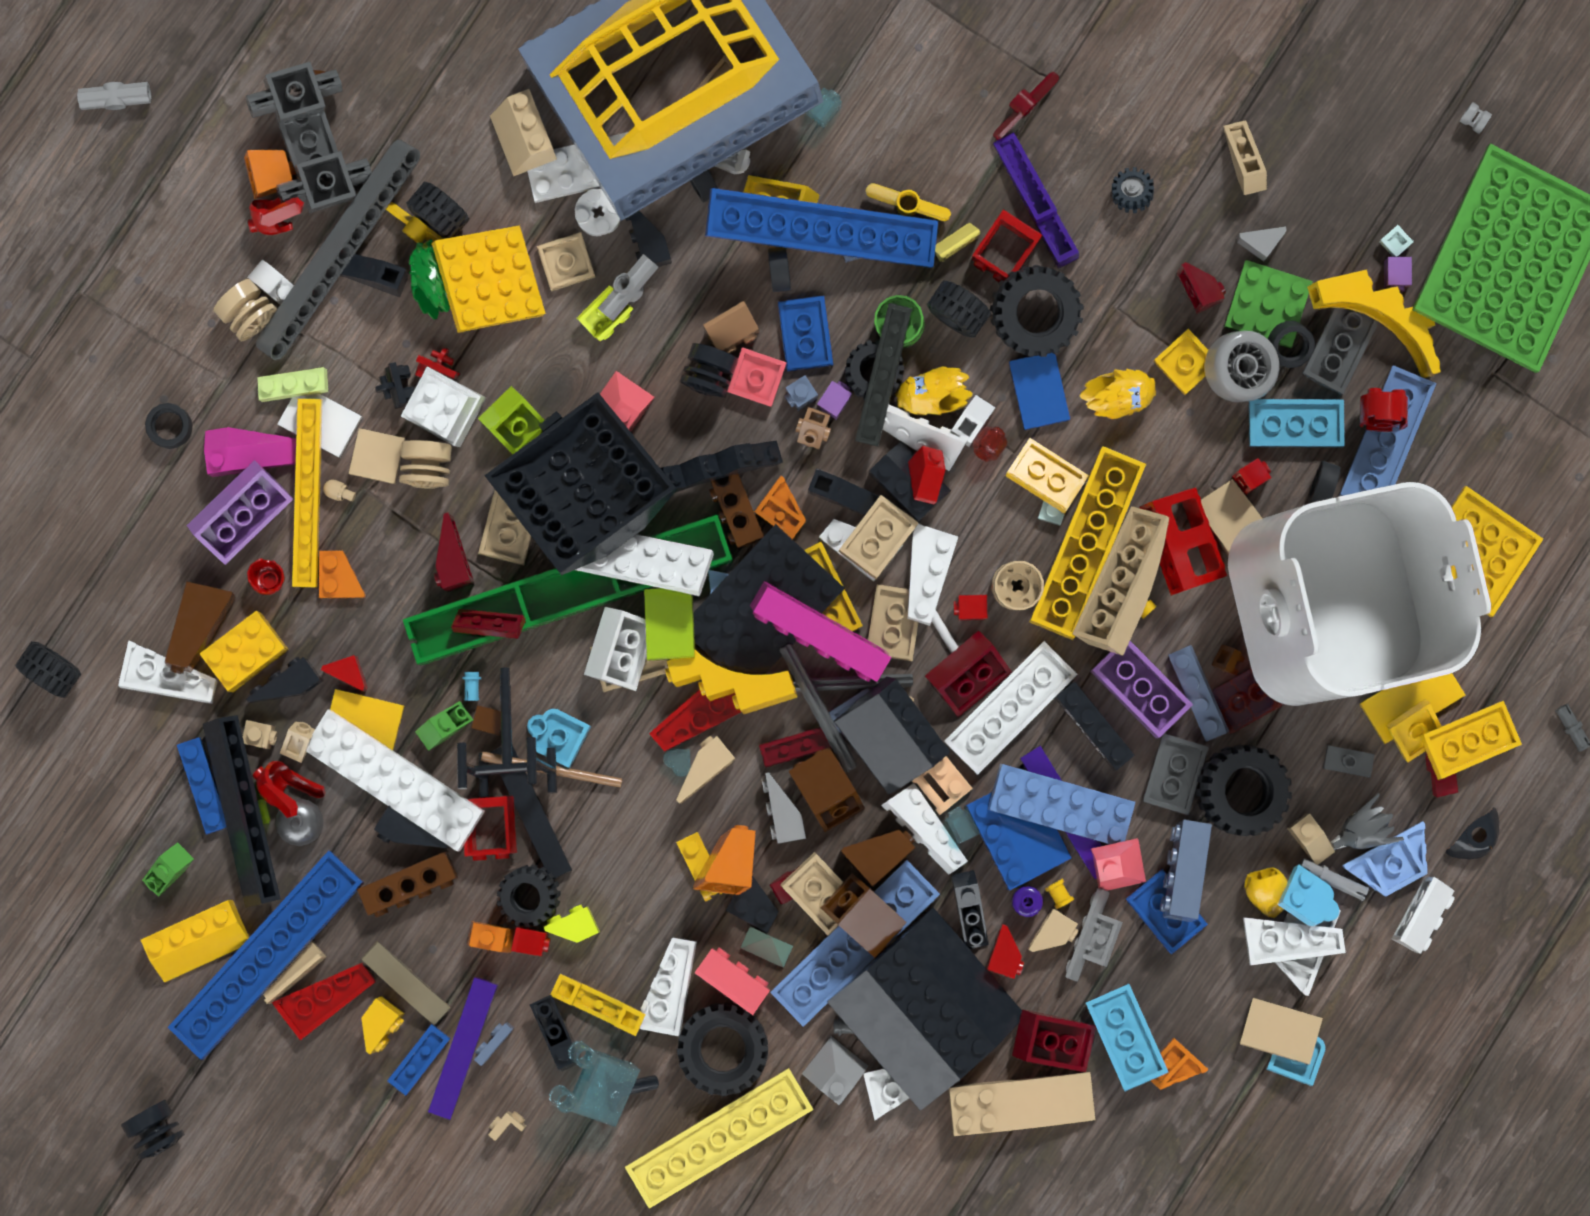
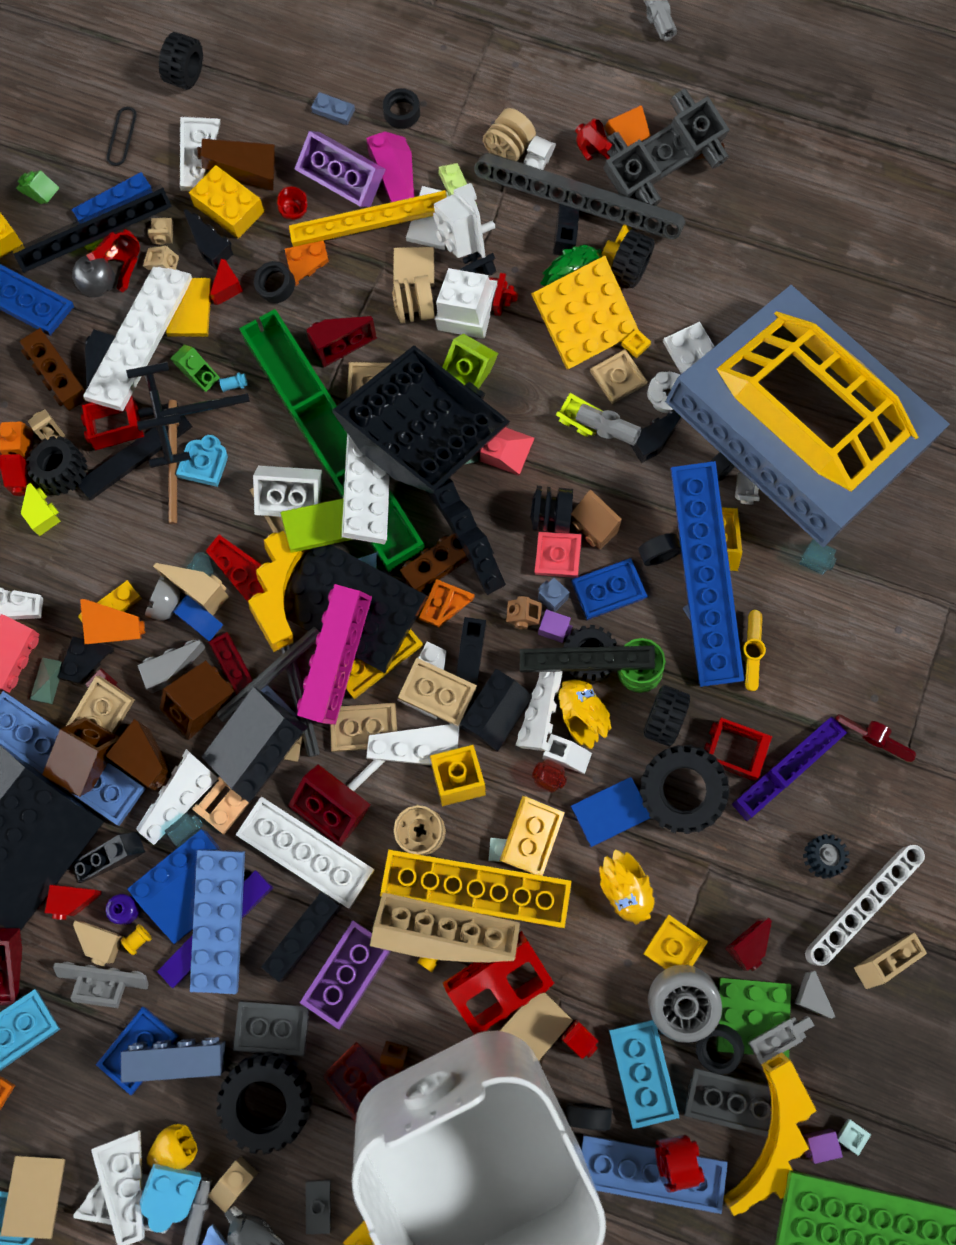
camera: 75 degrees right, 10 degrees down
(121, 752) = (129, 137): none -> black piece
(145, 505) = (333, 108): none -> sand blue plate
(338, 491) = (377, 243): tan cylinder -> none
(350, 389) = (460, 222): none -> white piece
(361, 598) = (265, 272): none -> black tyre
(476, 903) = (45, 426): none -> tan slope
(487, 720) = (202, 394): reddish brown brick -> none
(488, 623) = (286, 378): dark red tile -> none
(522, 133) = (719, 314): tan slope -> none
(533, 232) = (636, 343): none -> yellow plate
(711, 805) = (163, 600): none -> light grey cylinder
(738, 772) = (197, 618): none -> blue slope
(927, 474) = (504, 721): red slope -> none
(956, 241) = (729, 703): light yellow slope -> none
(969, 535) = (458, 775): none -> yellow slope
(970, 607) = (391, 793): red brick -> none
(1118, 865) = (172, 990): coral slope -> none
(1186, 154) = (875, 902): none -> white beam
(1198, 693) = (355, 1034): sand blue plate -> none
(1293, 284) = (780, 1038): none -> light grey hinge

